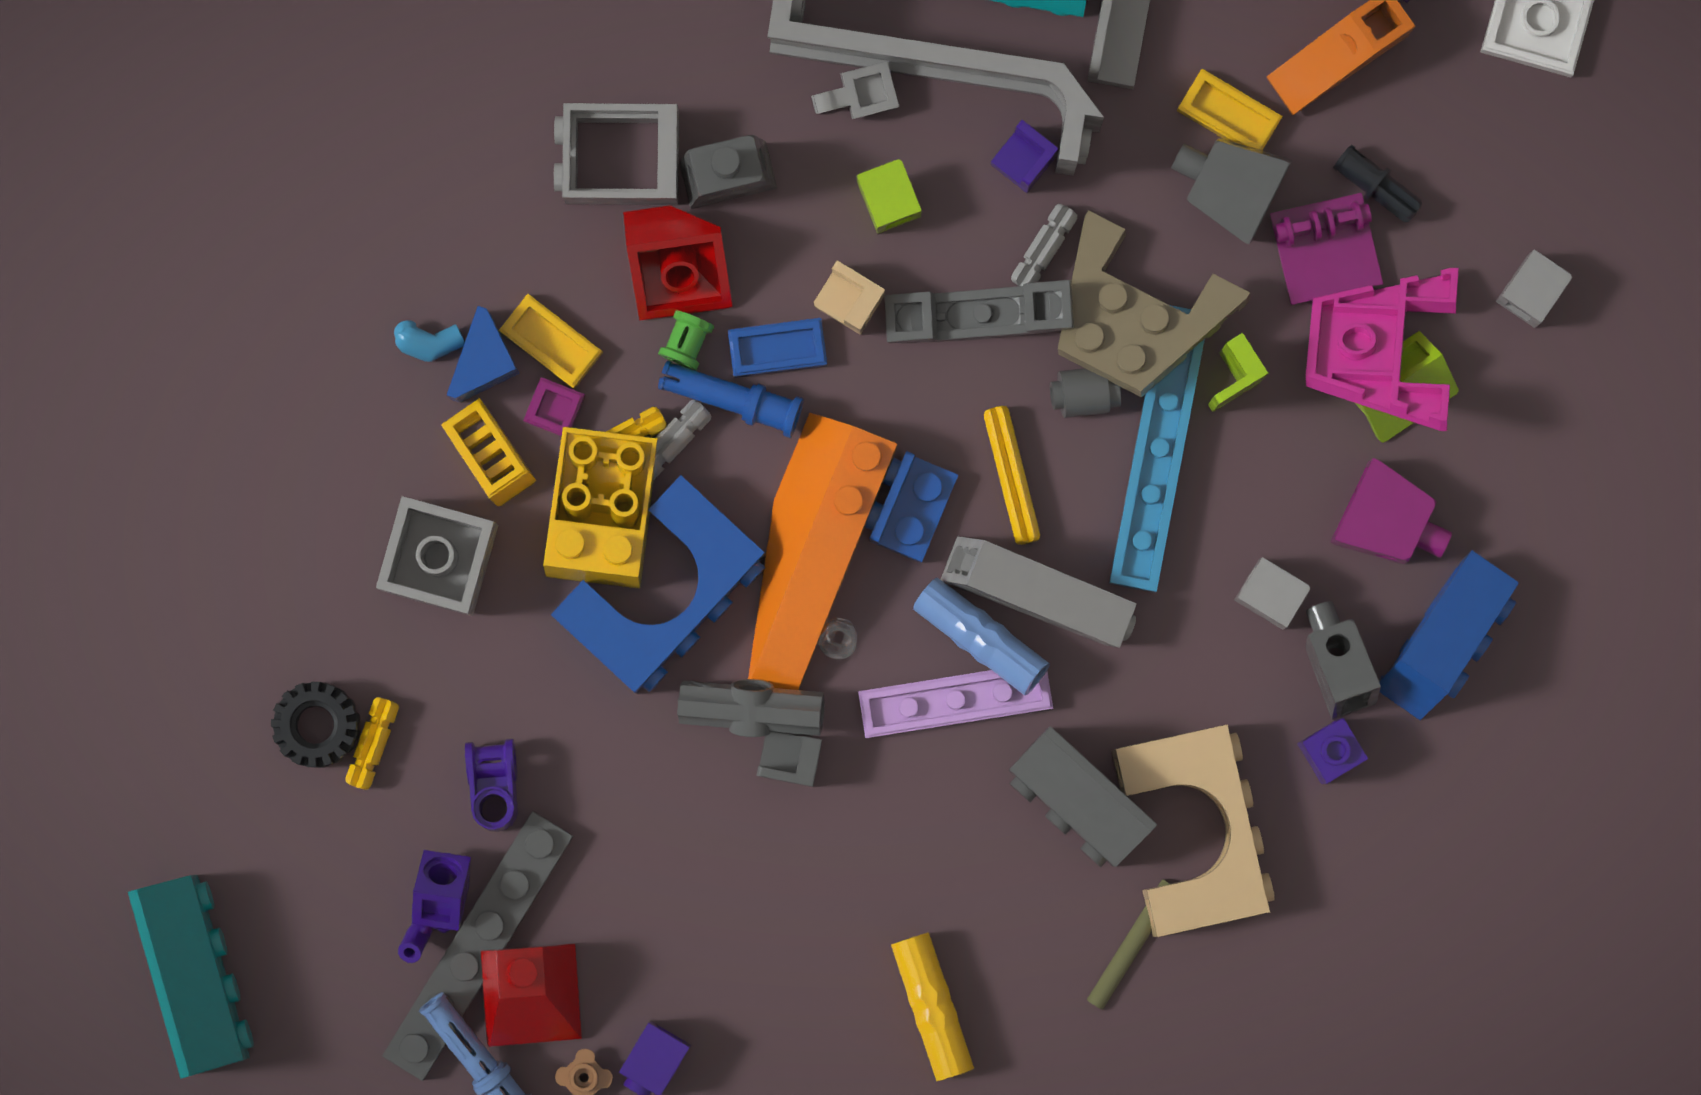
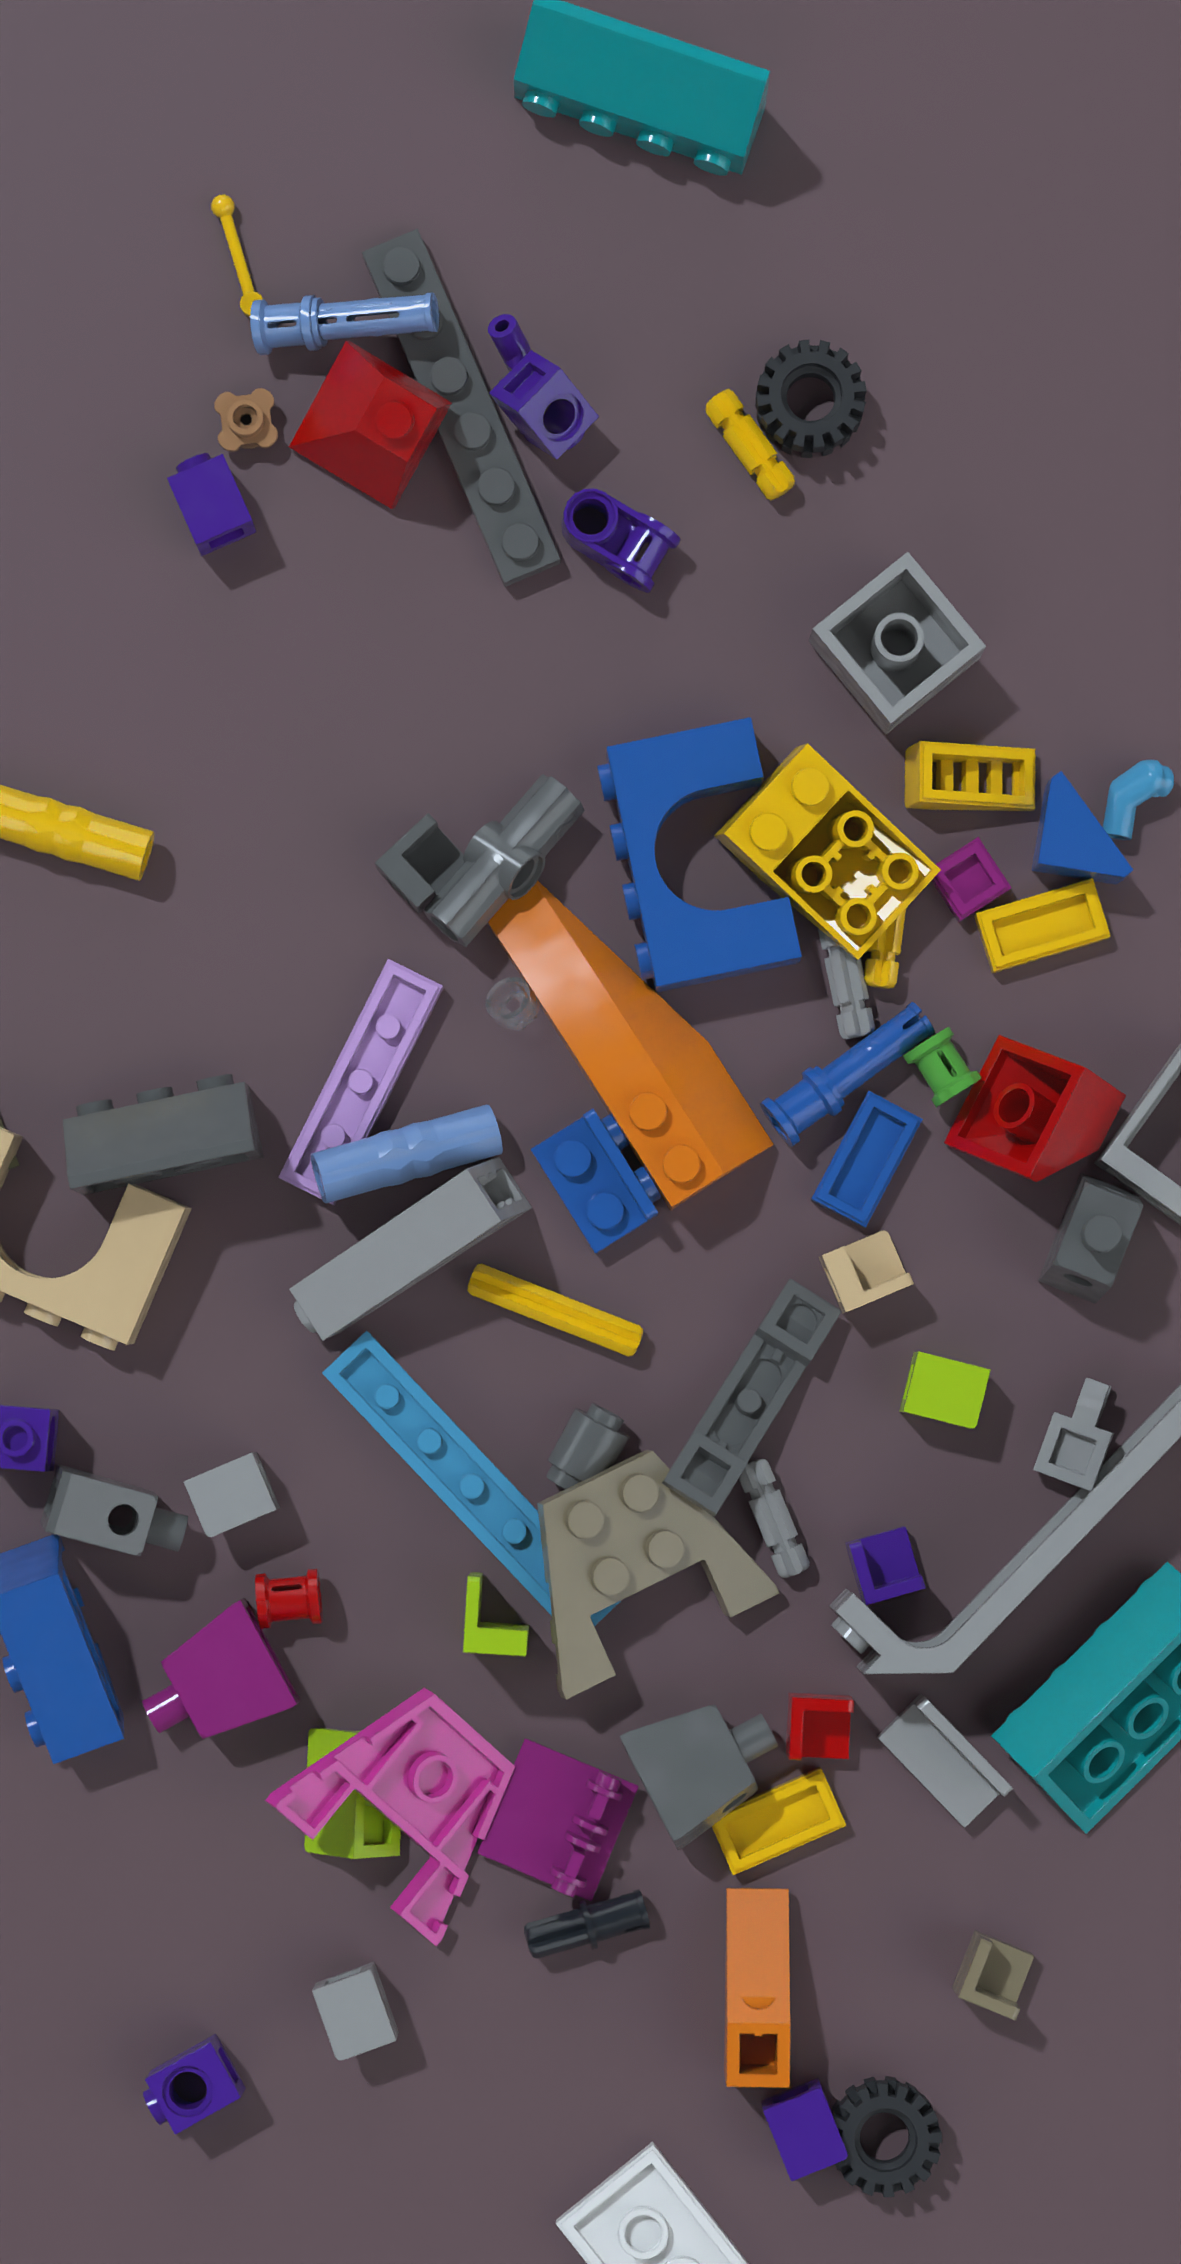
camera: 120 degrees right, 0 degrees up
(1152, 128) = (818, 1725): none -> red panel
(1311, 512) = (288, 1598): none -> red bush
(1630, 356) = (216, 2069): none -> dark purple brick

